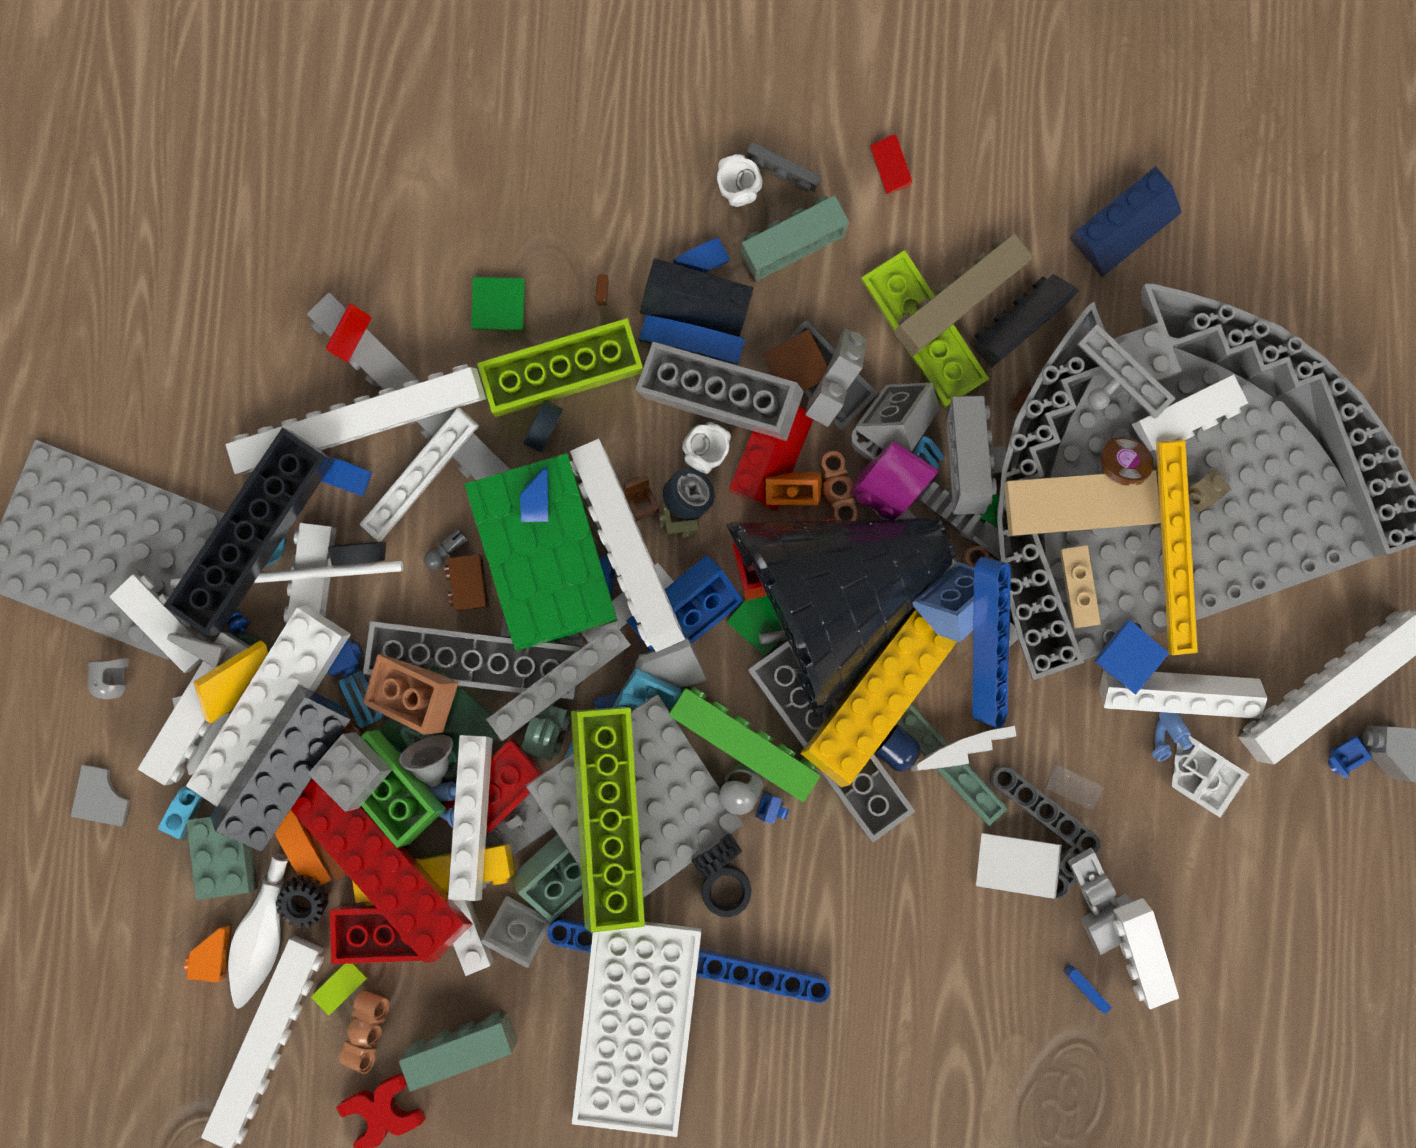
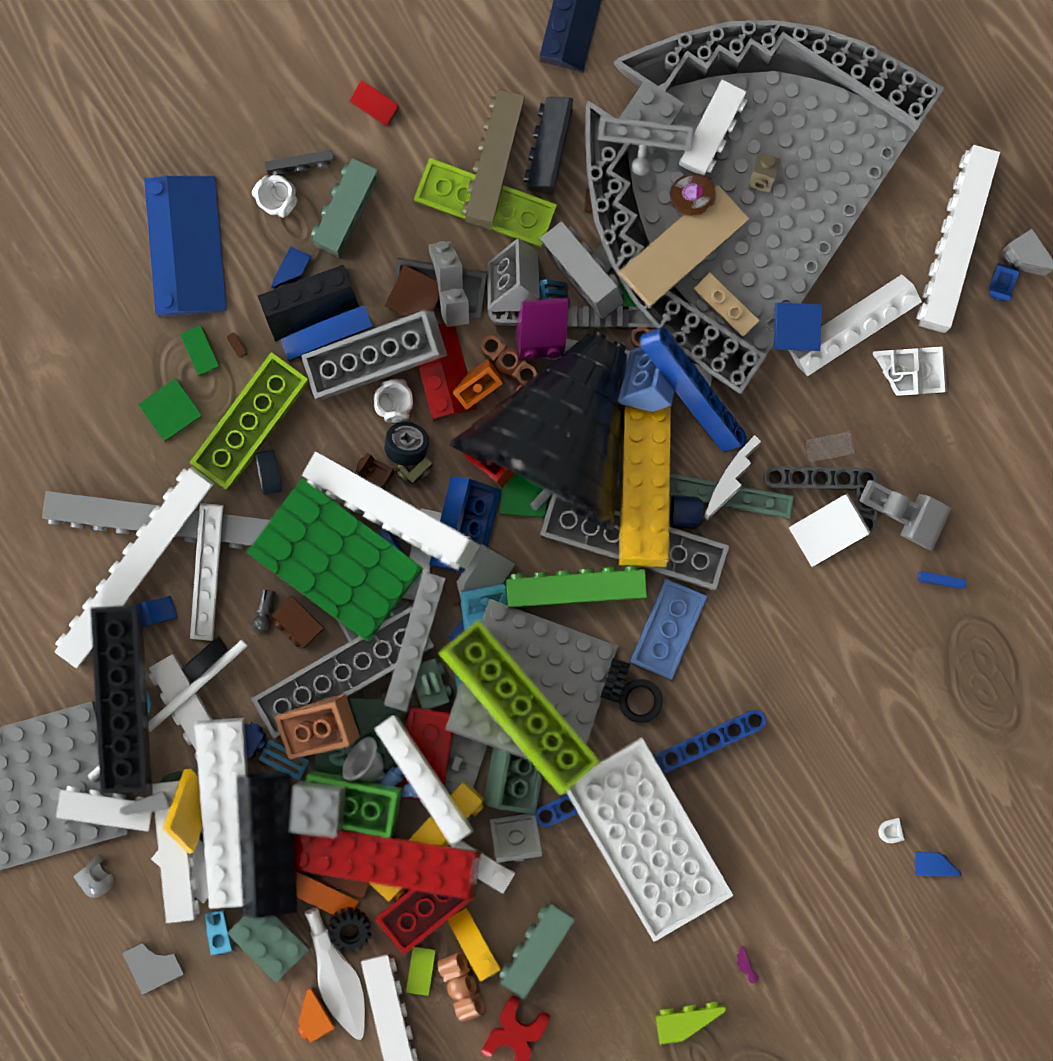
camera: 30 degrees left, 0 degrees up
(238, 623) = (157, 771): blue hair -> none
(348, 333) = (83, 509): red slope -> none
(405, 1003) = (473, 944): none -> yellow slope
(535, 498) = (303, 525): blue slope -> none
(565, 270) = (199, 350): none -> green tile
(623, 164) = (185, 245): none -> blue slope
(740, 797) = (600, 627): light grey helmet -> none
(770, 808) = (628, 621): blue tile -> none
(801, 843) = (668, 629): none -> medium blue tile
(1145, 953) = (961, 524): white brick -> none
(1176, 547) = (771, 228): yellow tile -> none
(1178, 731) = (871, 353): medium blue plant -> none

